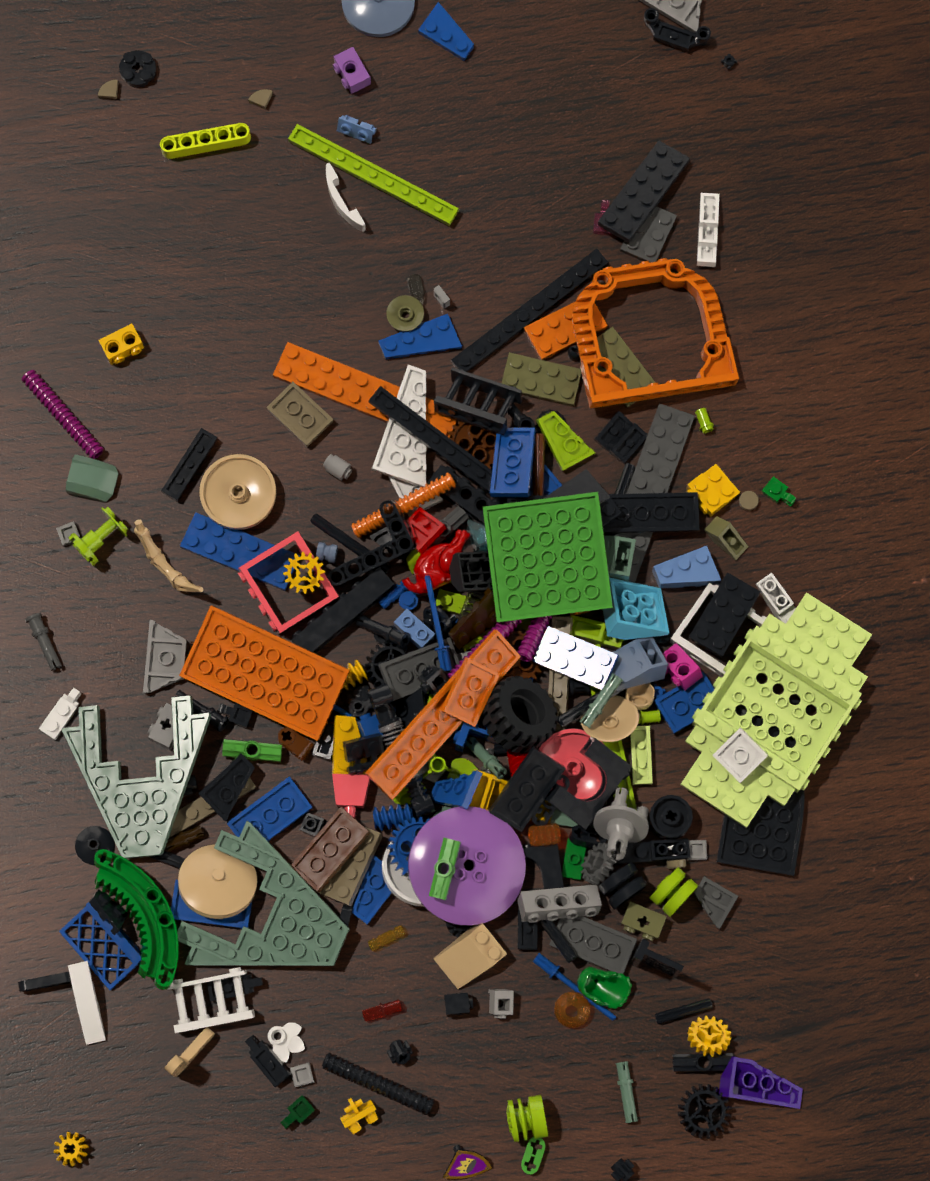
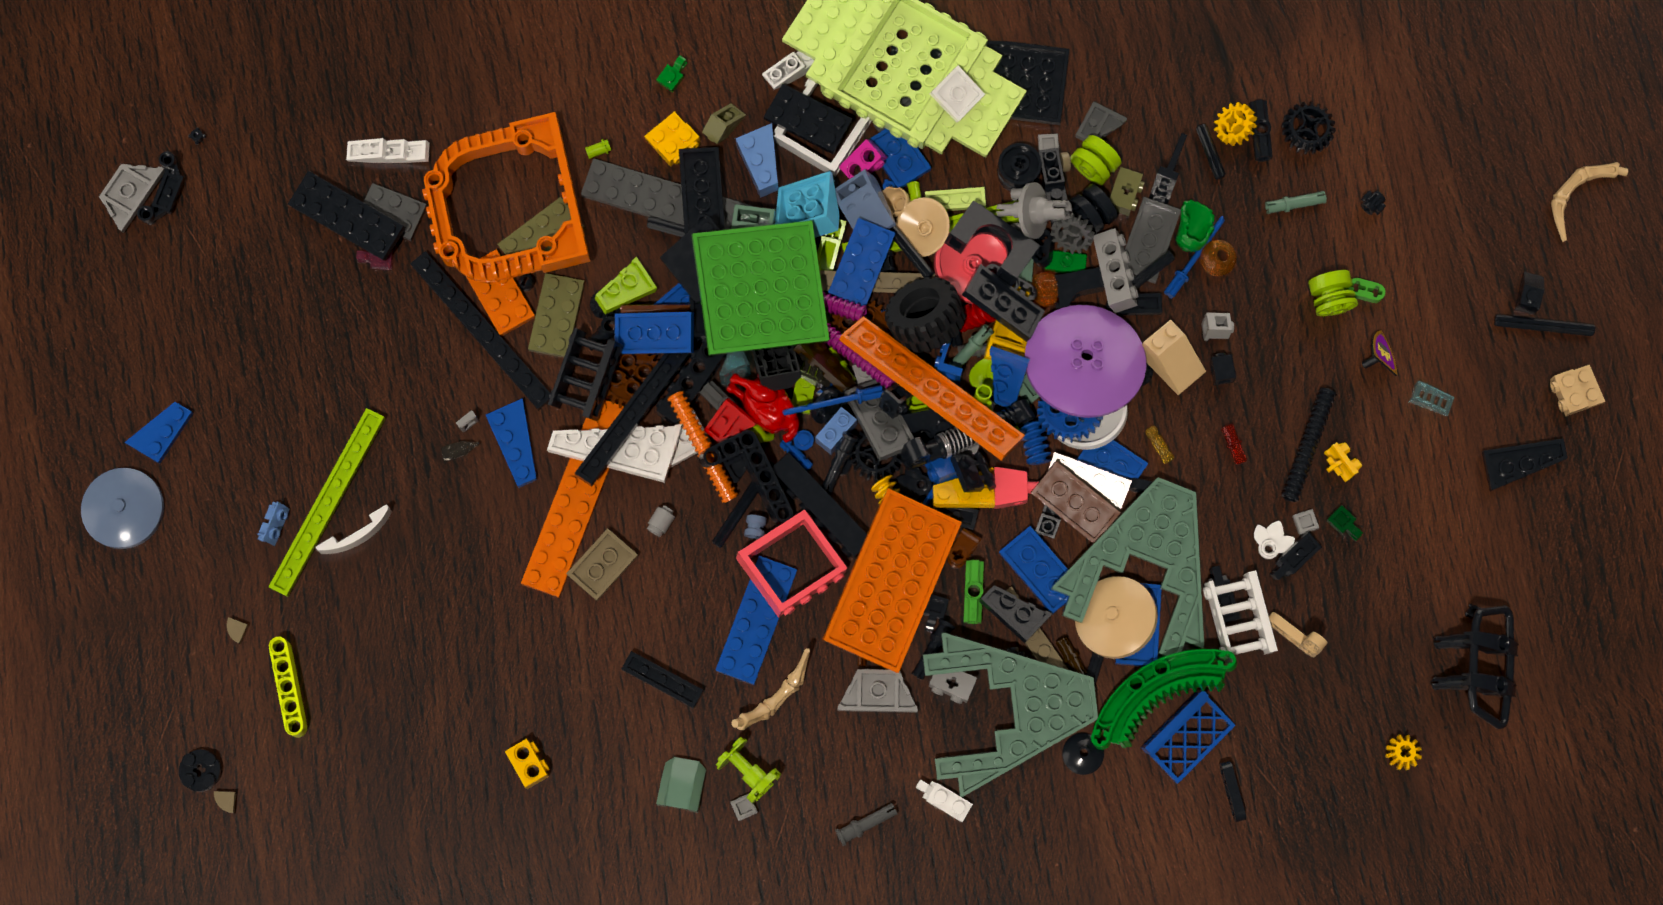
camera: 90 degrees left, 0 degrees up
(62, 414) = (609, 823): magenta piece -> none
(87, 1002) = (1251, 746): white slope -> none
(108, 910) = (1155, 728): black wing -> none
(237, 491) = (692, 623): tan dish -> none
(314, 581) = (776, 536): yellow gear -> none
(350, 60) = (193, 531): medium lavender brick -> none
(399, 1052) = (1276, 423): black gear -> none
(402, 305) = (481, 450): olive dish -> none
(447, 855) = (1109, 377): bright green piece -> none
(470, 692) = (908, 359): orange plate -> none
(599, 703) = (907, 233): sand green pin -> none
(620, 437) = (618, 232): black slope -> none
(748, 500) = (682, 103): dark tan tile -> none
(751, 1082) = (1279, 78): dark purple wedge -> none

